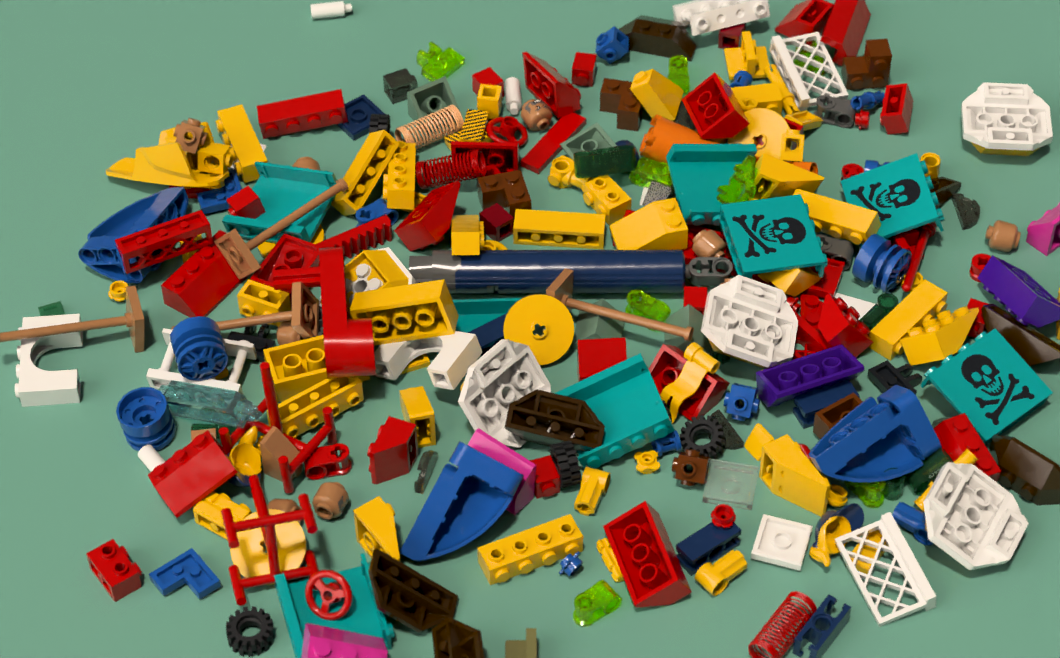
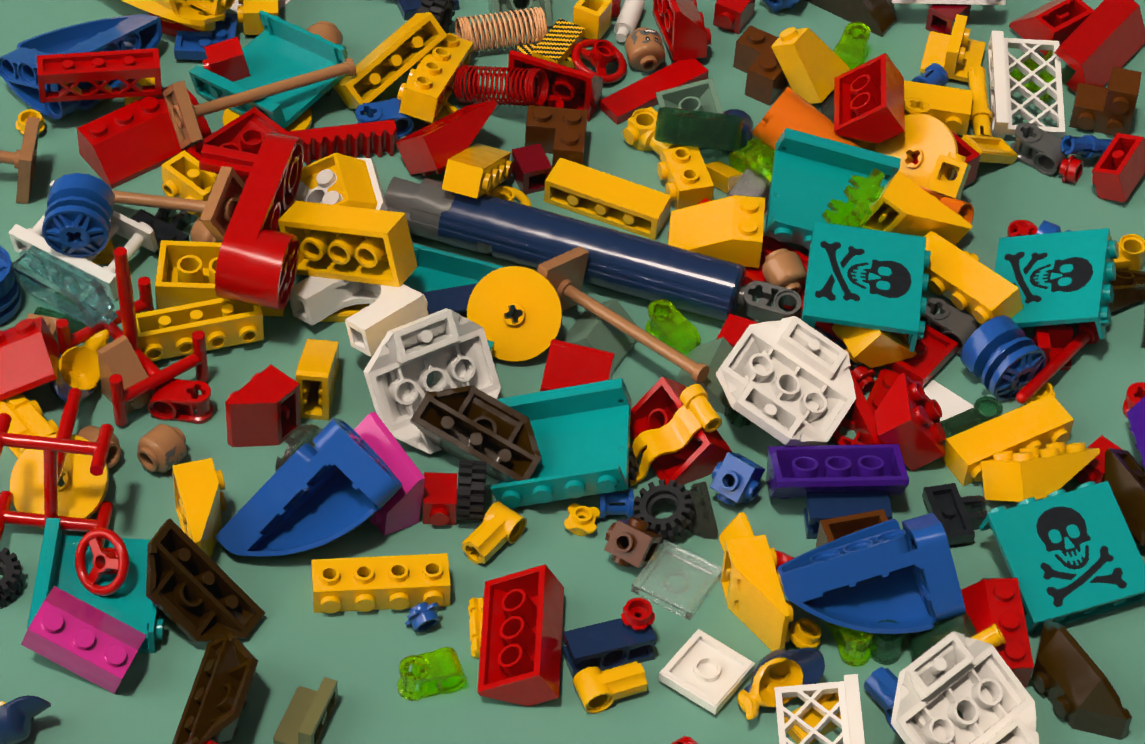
camera: 15 degrees right, 0 degrees up
(632, 189) = (723, 175): none -> yellow slope

